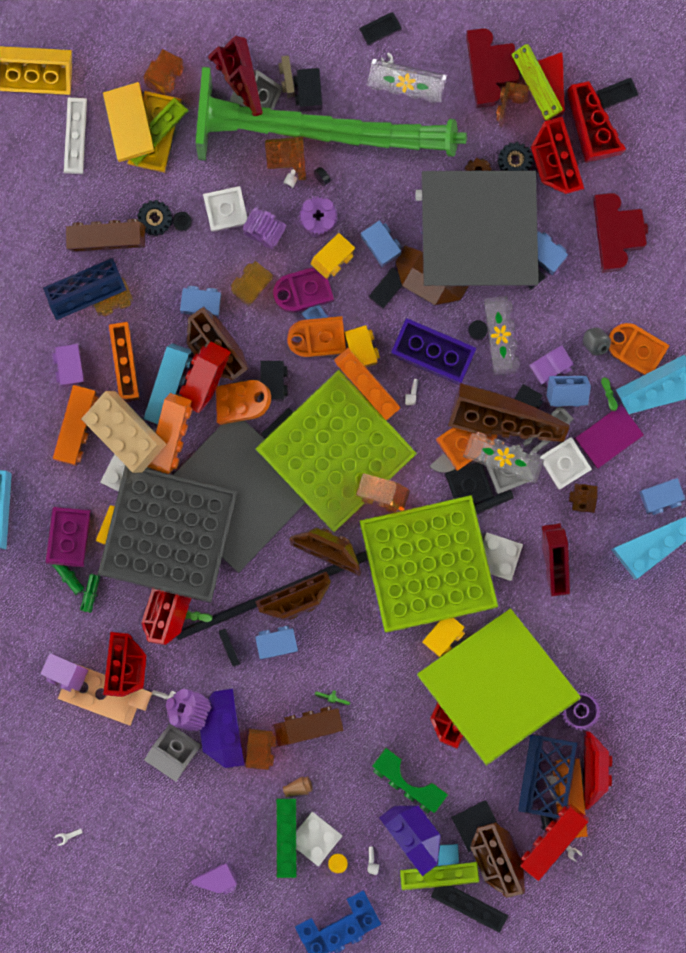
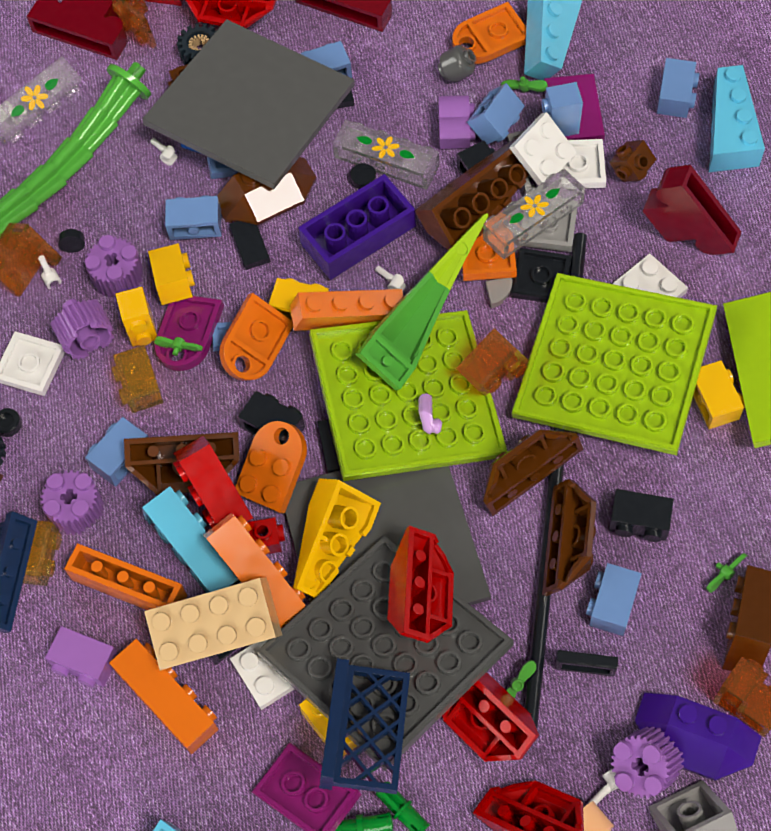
camera: 50 degrees left, 20 degrees down
(109, 534) = (338, 731): none -> dark blue fence
(148, 288) = (71, 501): none -> medium lavender brick
(200, 429) = (274, 532): none -> red brick
(208, 534) = (420, 587): none -> red wedge
(224, 459) = (332, 528): none -> yellow wedge
(288, 293) = (177, 344): none -> bright green piece
(289, 257) = (136, 316): none -> yellow brick
(325, 471) = (426, 415): none -> lavender arm
(337, 631) = (641, 515): none -> black brick
(366, 428) = (402, 334): none -> bright green plate
(552, 438) = (542, 149): none -> white plate
(589, 433) = (564, 107): none -> medium blue brick

